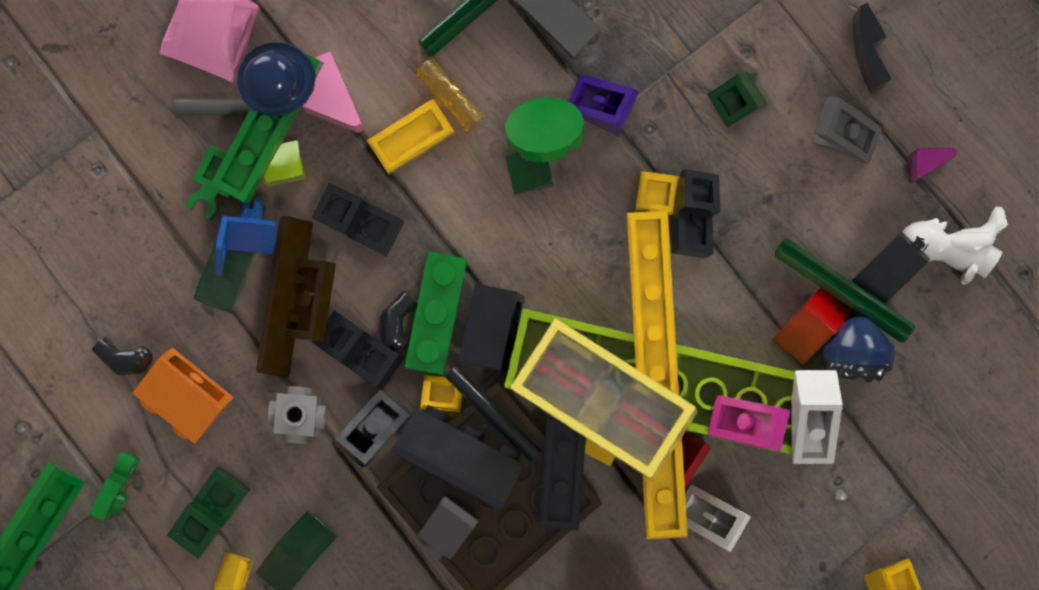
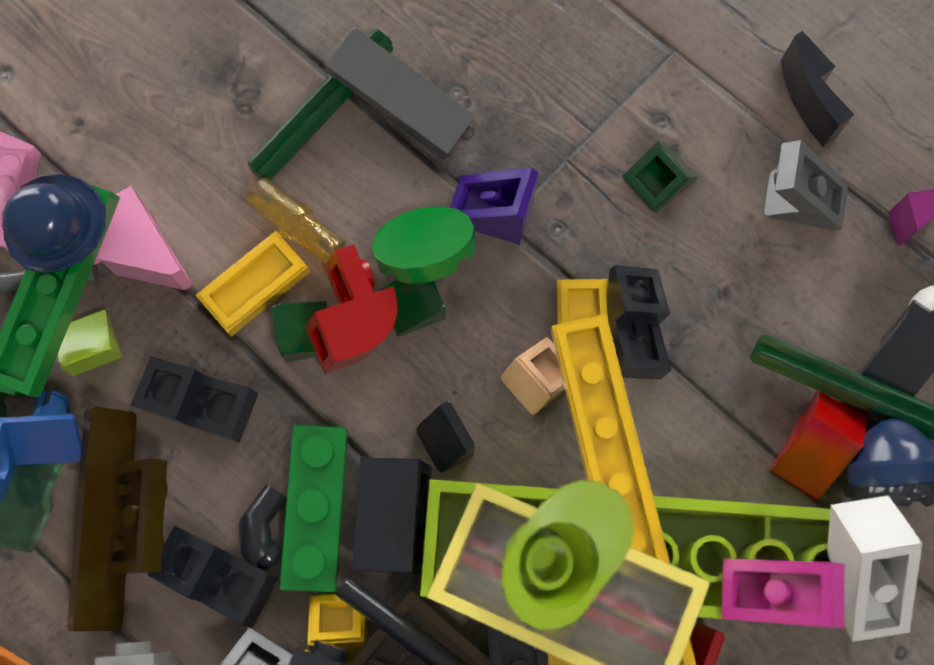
camera: 10 degrees left, 10 degrees down
(445, 179) = (291, 331): none -> dark green slope
(490, 181) = (360, 320): none -> red brick
(538, 278) = (445, 438): none -> black slope
(604, 374) = (566, 554): none -> lime piece
(610, 242) = (535, 376): none -> light nougat slope

